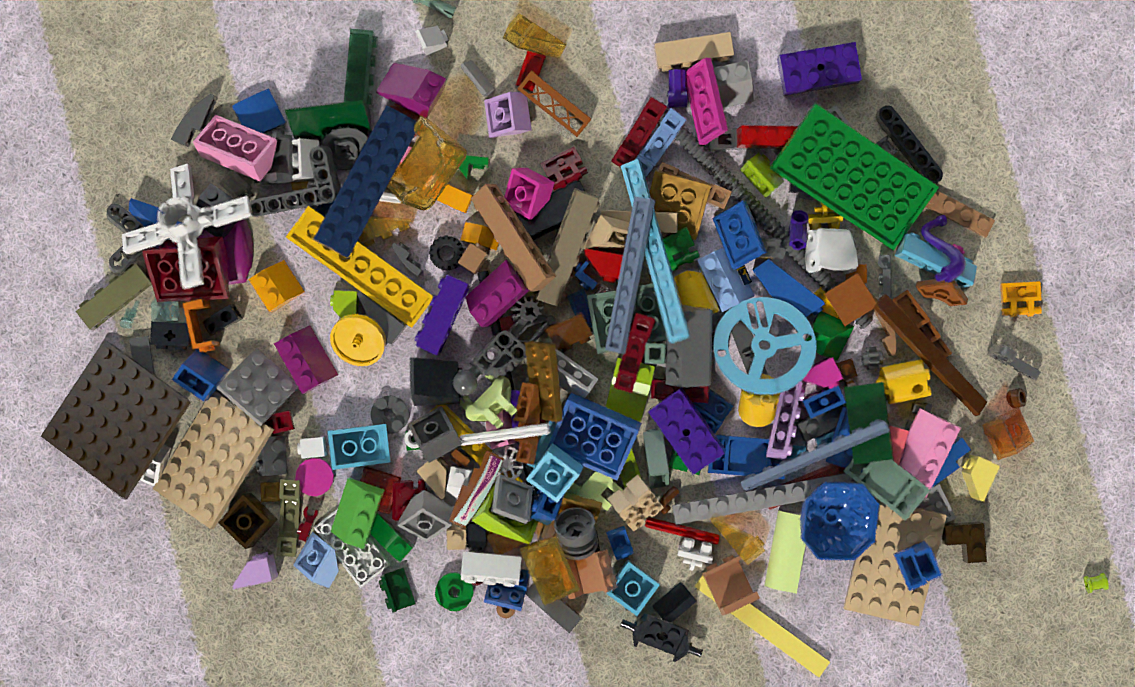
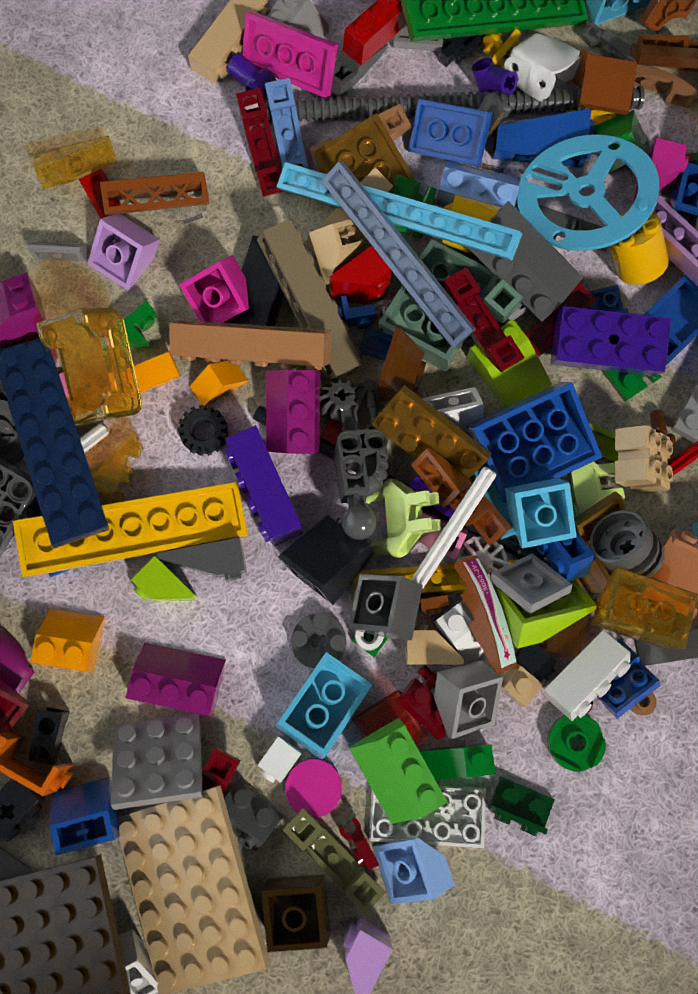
camera: 50 degrees left, 10 degrees down
(270, 491) = (286, 855): pearl gold tile -> none
(358, 340) = (207, 601): yellow piece -> none
(402, 253) = (162, 475): dark grey slope -> none
(473, 258) = (234, 403): medium nougat brick -> none
(561, 164) = (222, 238): dark red plate -> none
(620, 543) = (669, 515): blue bracket -> none
(656, 458) = (610, 400): sand green slope -> none
(760, 175) = (410, 65): lime slope -> none
(872, 358) = (680, 119): dark grey gear -> none

